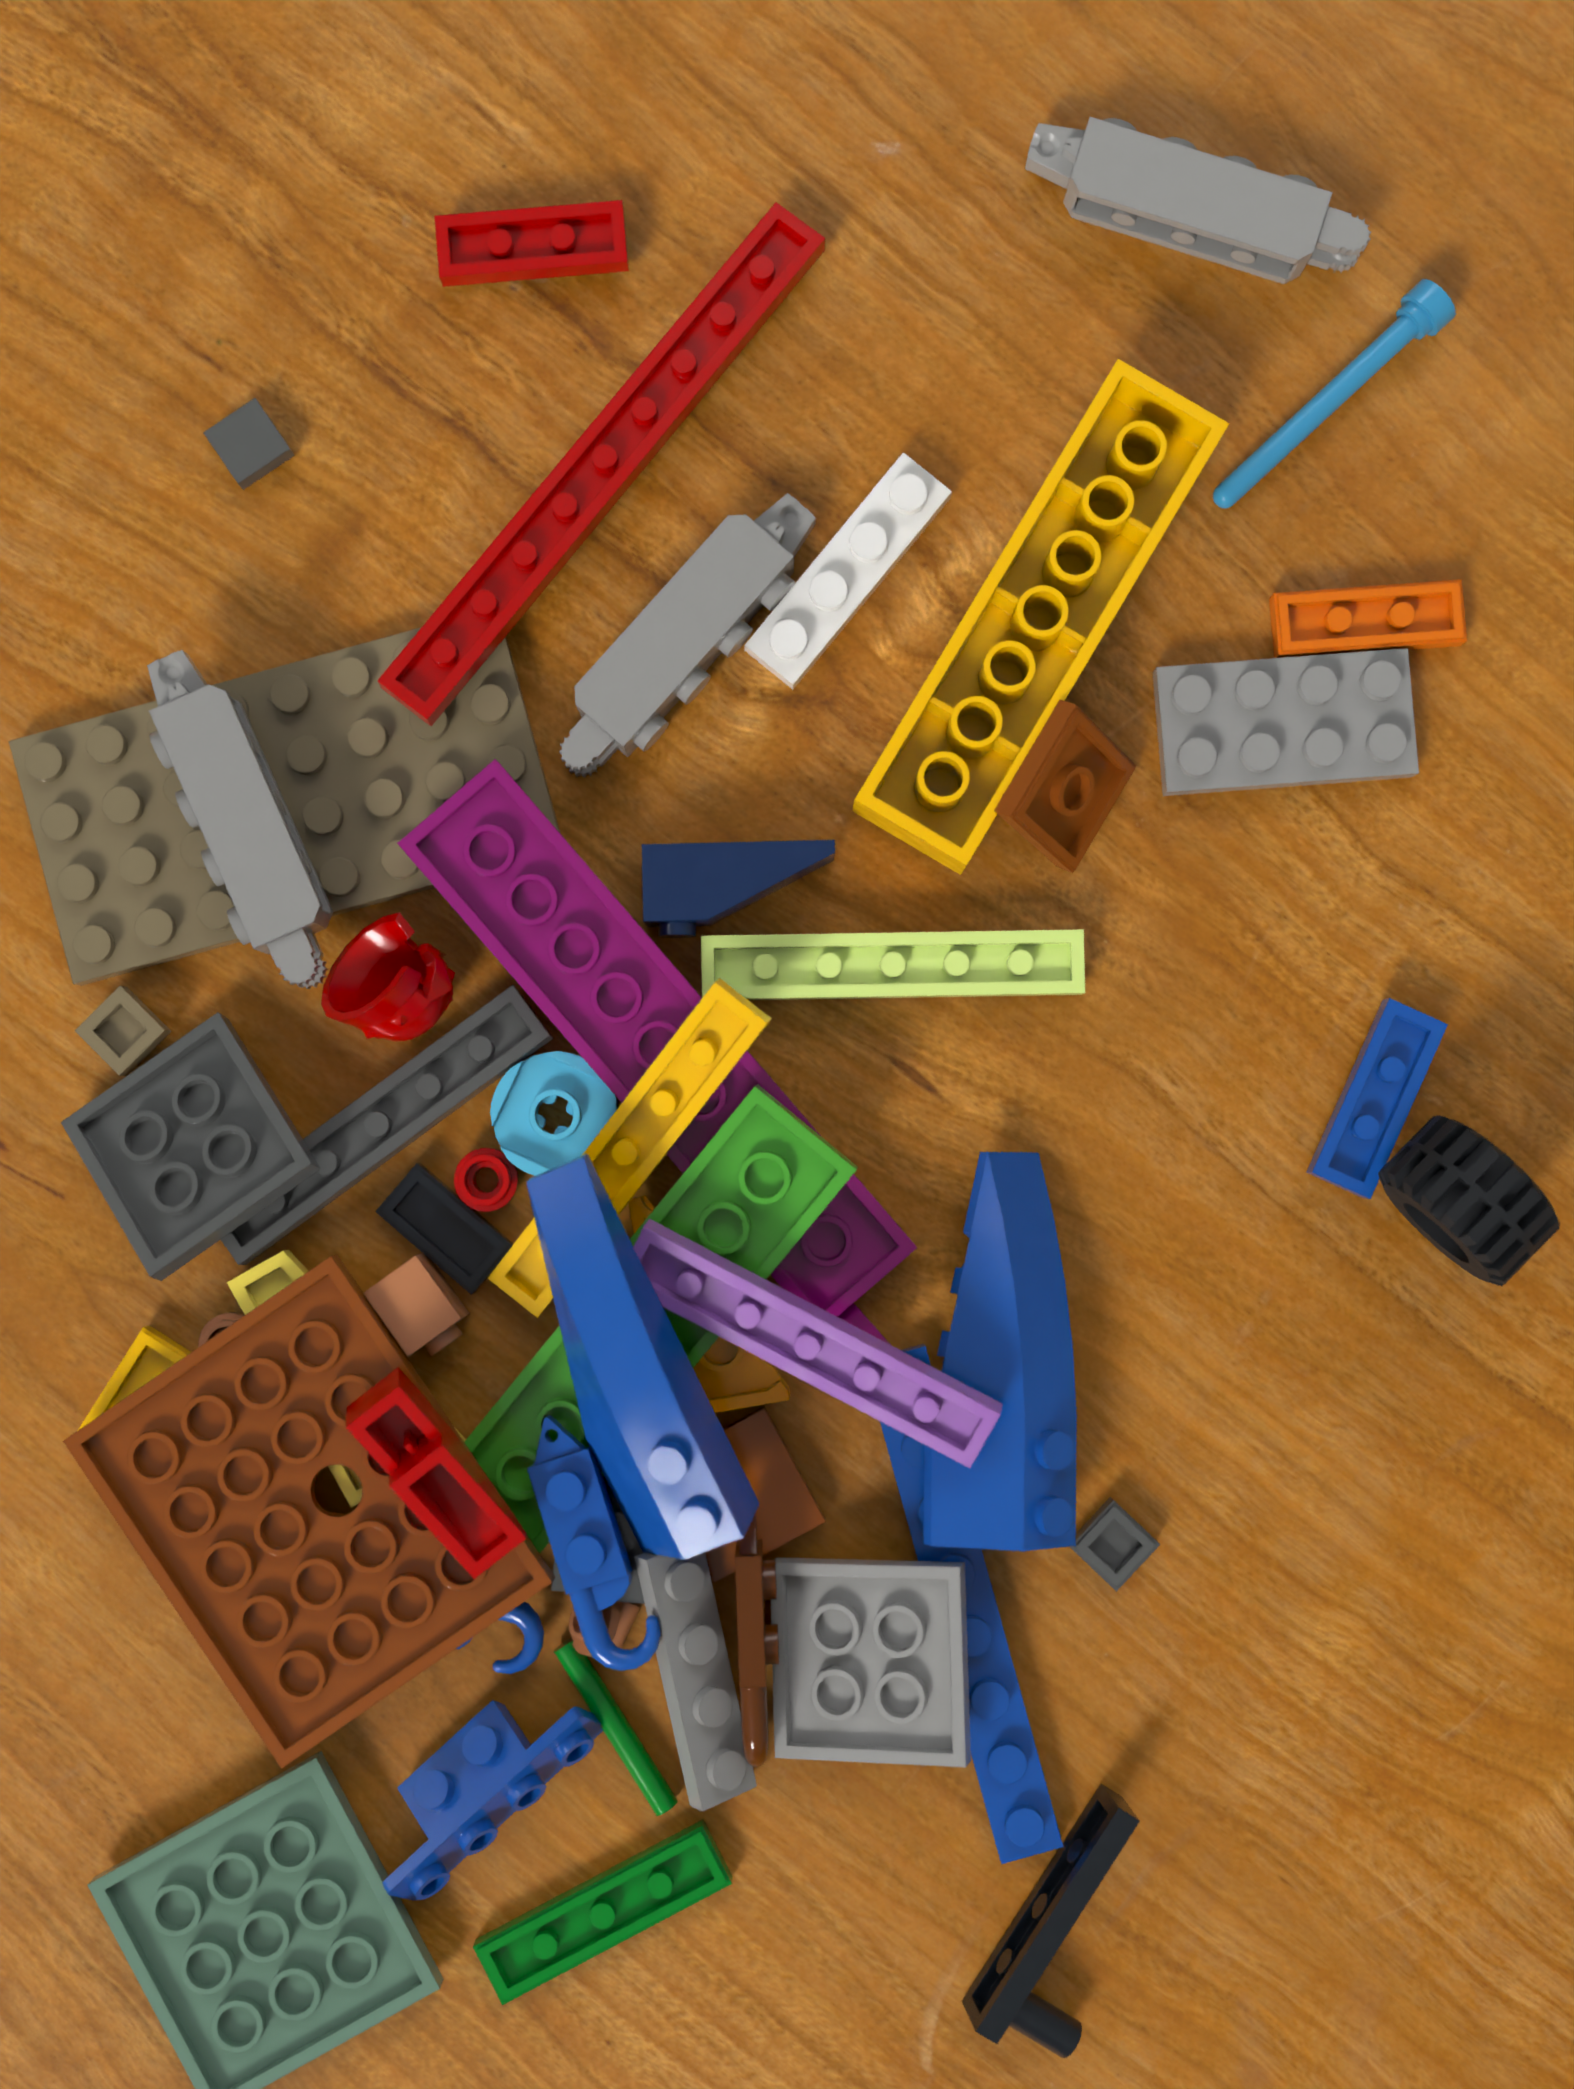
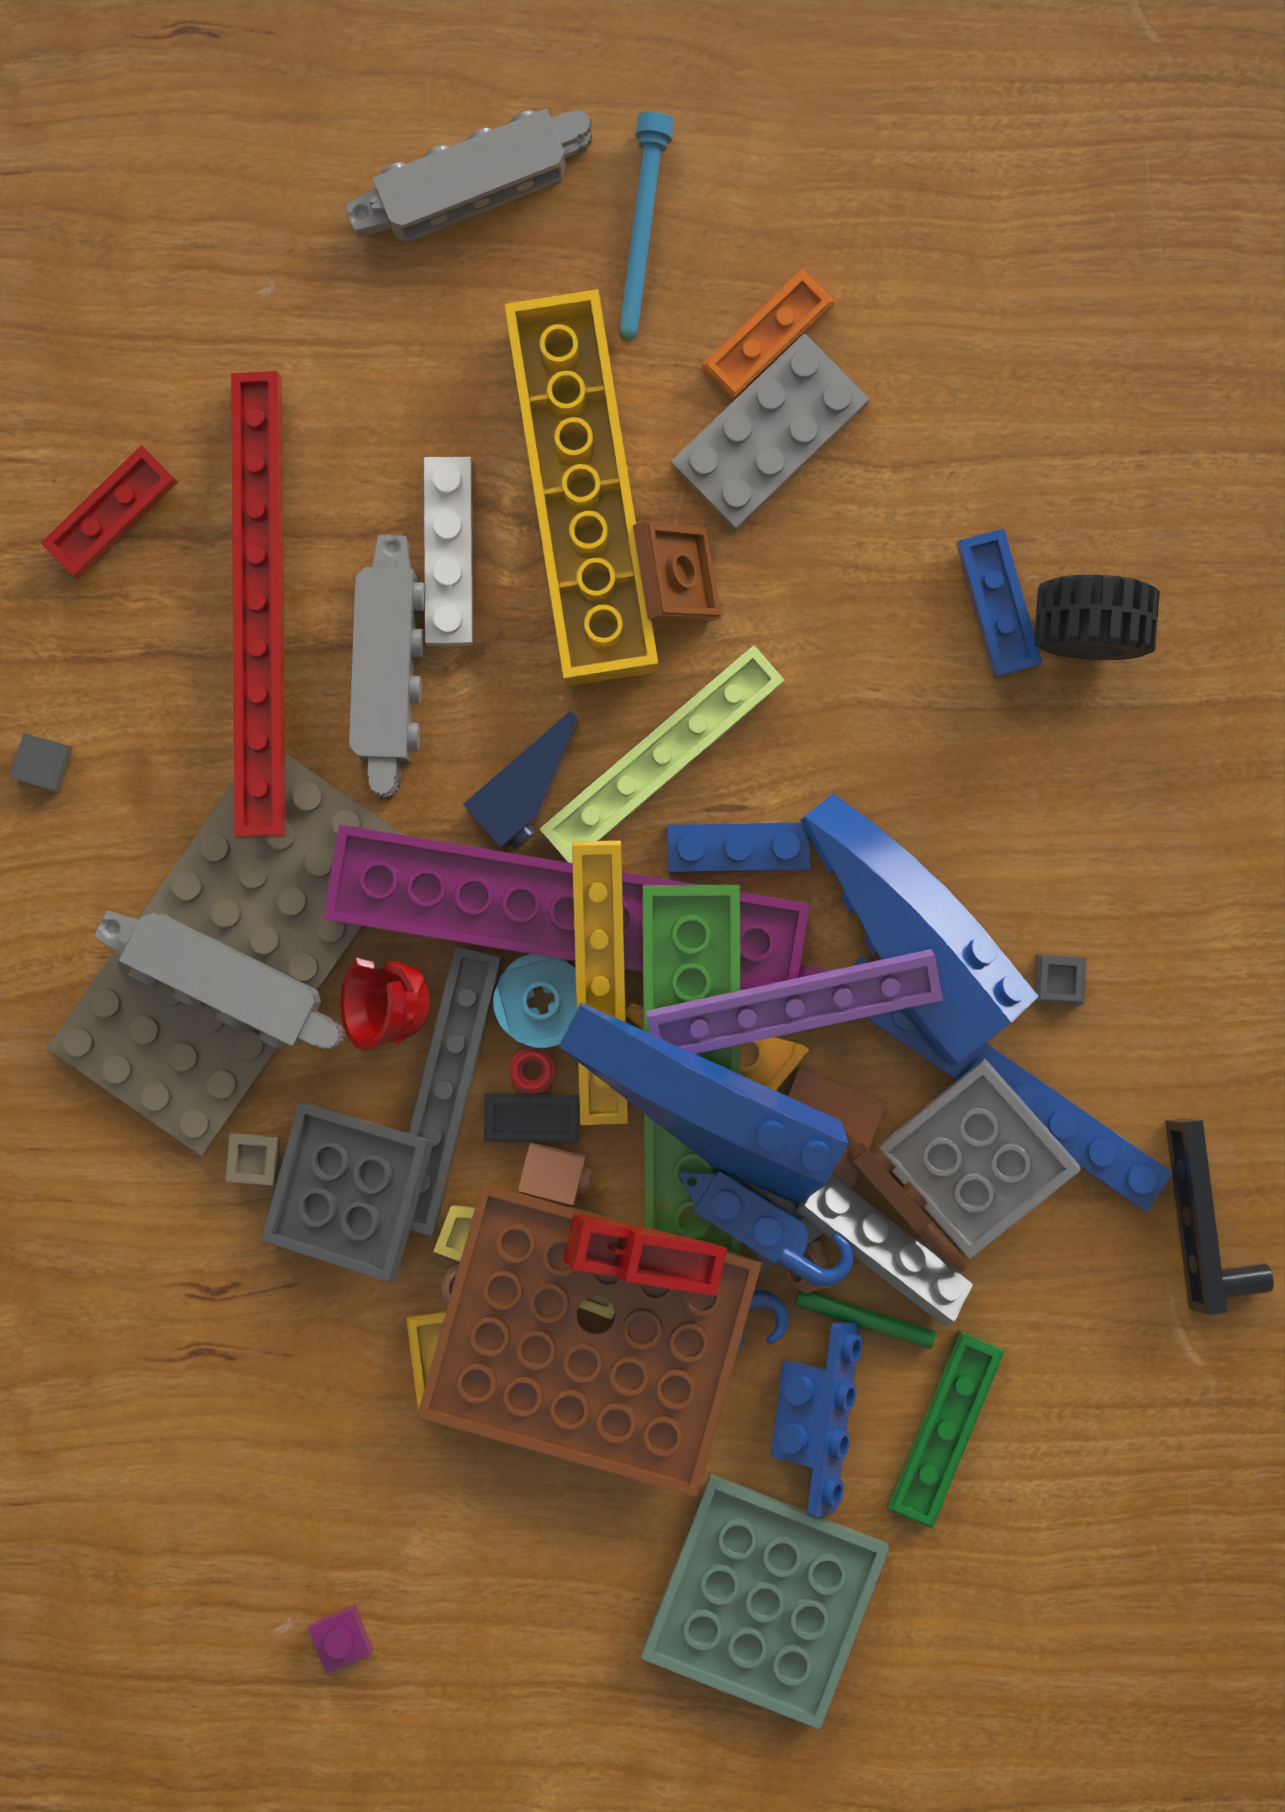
camera: 40 degrees left, 0 degrees up
(891, 1126) = (737, 847): none -> blue plate

